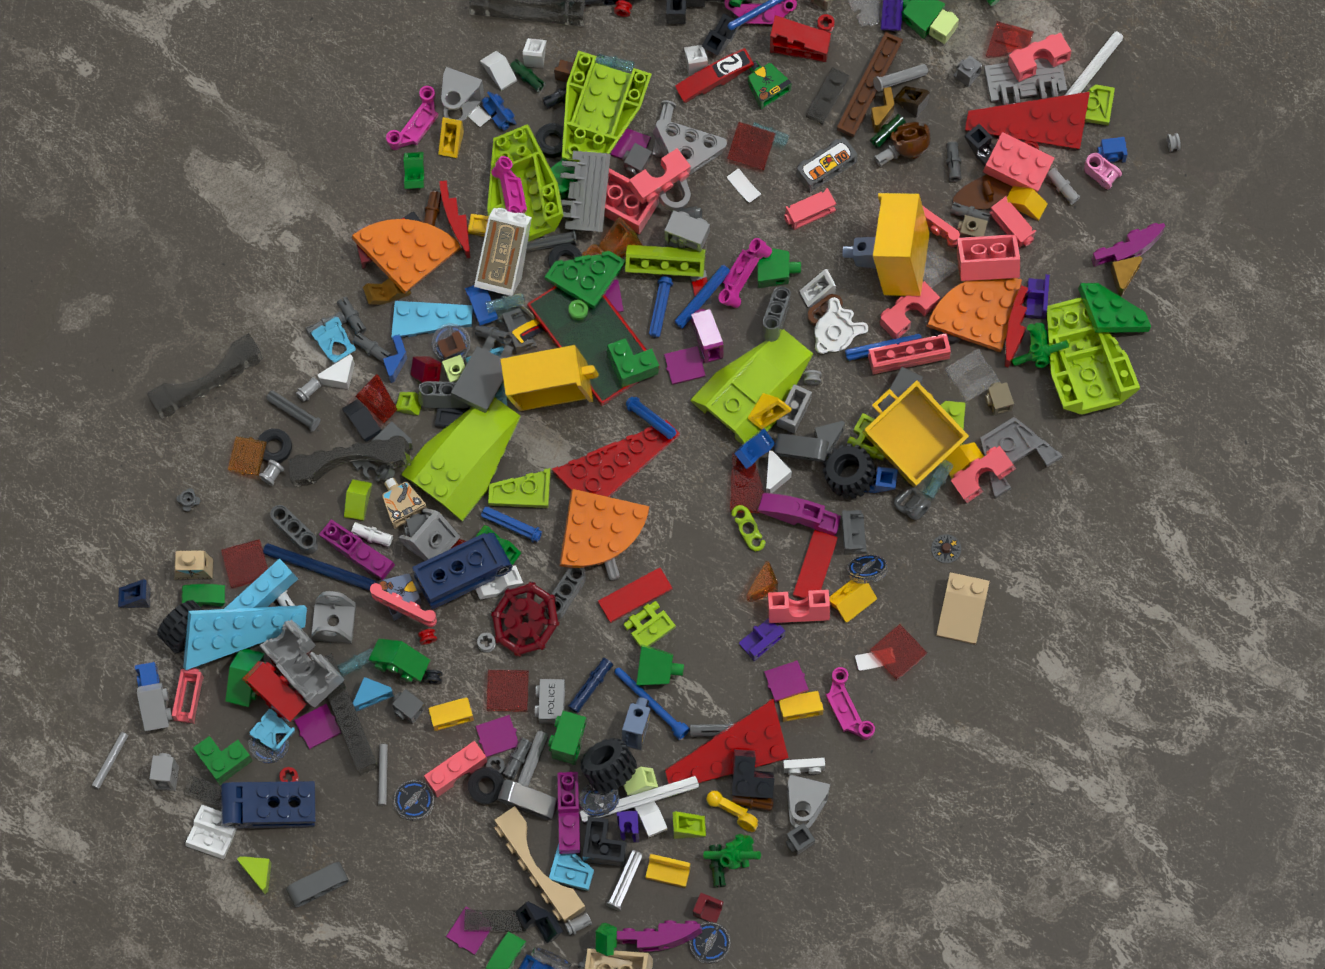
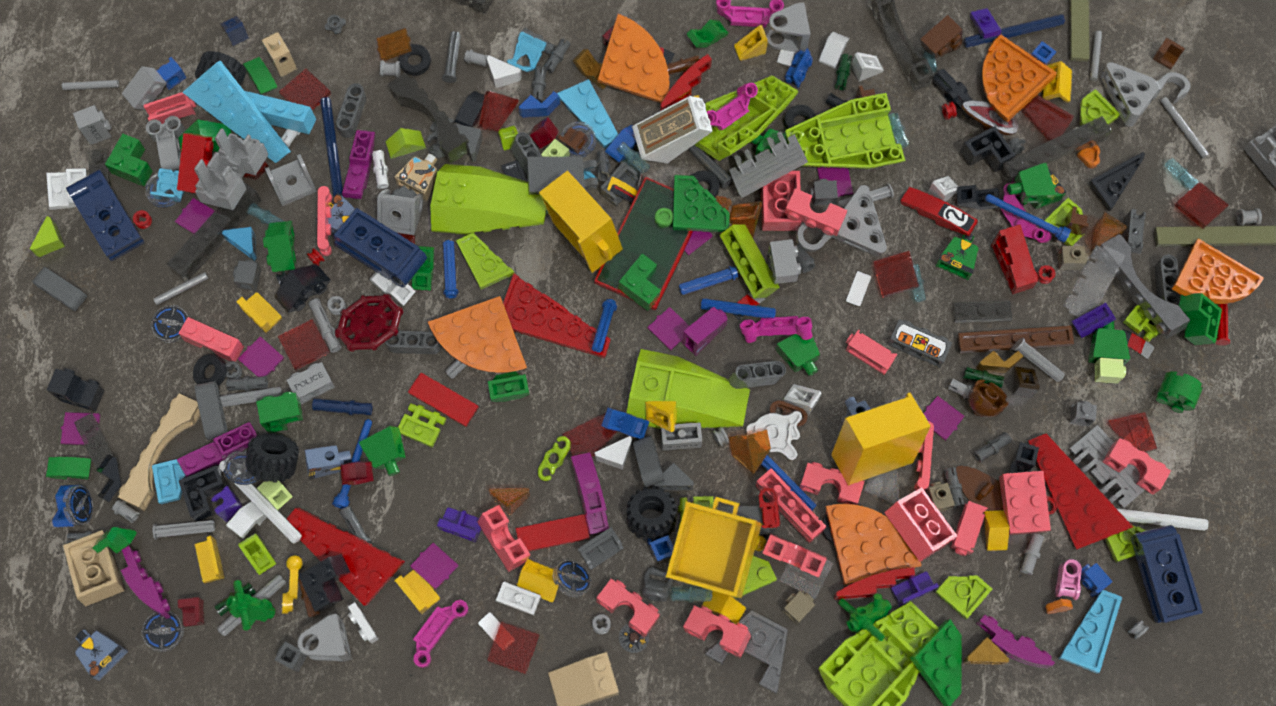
camera: 55 degrees right, 0 degrees up
(224, 714) = (167, 141): none -> light grey piece
(434, 913) = (72, 390): none -> black brick
(453, 658) = (301, 285): none -> black brick
(508, 662) = (327, 330): none -> light grey pin
(657, 531) = (508, 387): none -> green slope
(664, 700) = (356, 472): none -> dark red panel
(726, 836) = (265, 593): none -> light grey axle
(838, 358) = (750, 448): none -> clear orange slope
(857, 624) = (518, 598): none -> white plate
(903, 183) = (943, 417): none -> magenta piece
(906, 370) = (770, 510): none -> red piece
(918, 574) = (599, 618): none -> light grey bush
(933, 528) = (615, 595): none -> coral arch
(955, 374) = (795, 555): none -> coral arch
(1065, 260) = (964, 593): none -> lime plate
(1119, 190) = (1059, 606): none -> orange tile
(1142, 91) = (1162, 554): none -> dark blue hinge
(1158, 181) = (1093, 634): none -> medium azure wing

